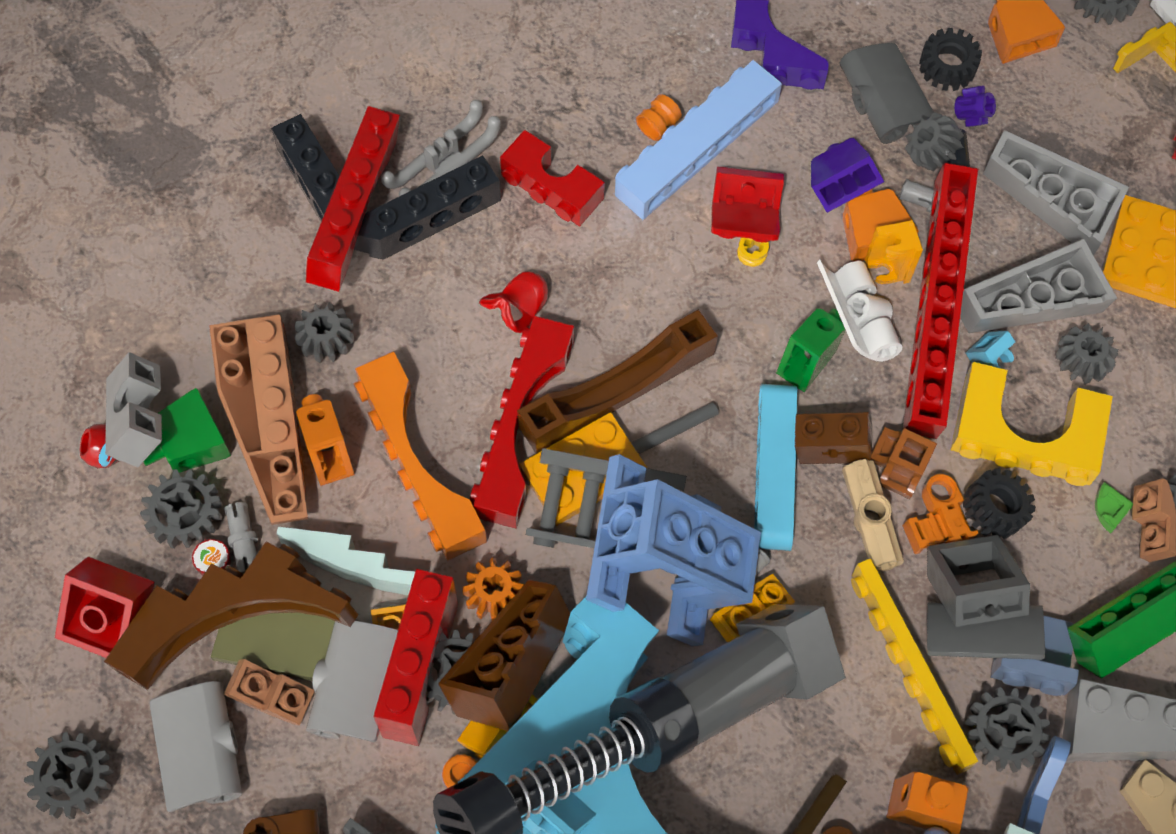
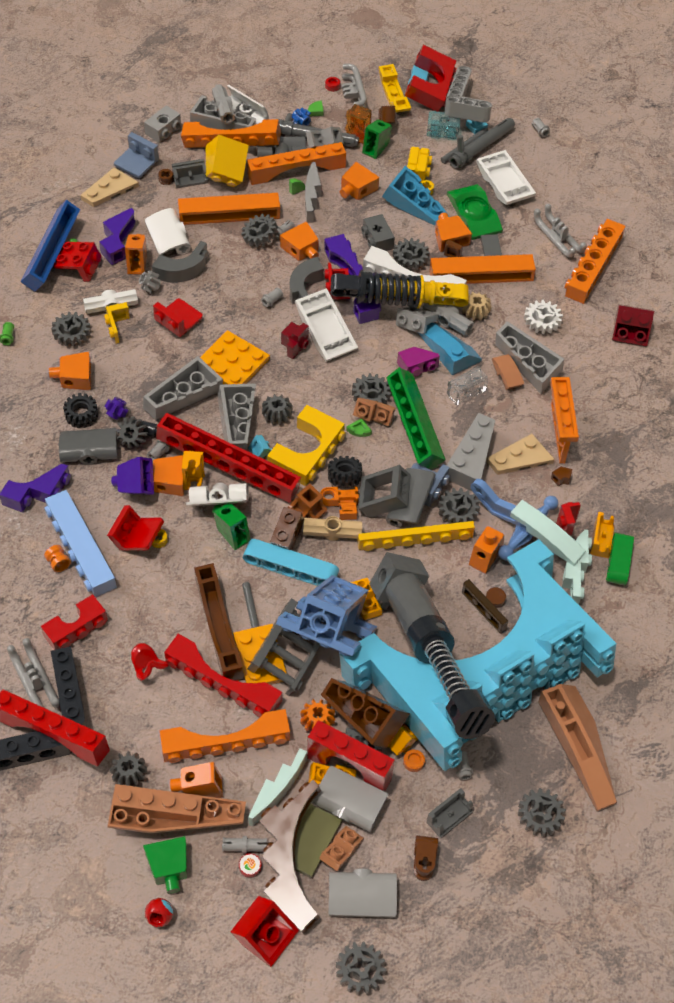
camera: 75 degrees left, 10 degrees down
(130, 426) = (130, 885): light grey arch -> none
(173, 496) = (222, 878): dark grey gear -> none

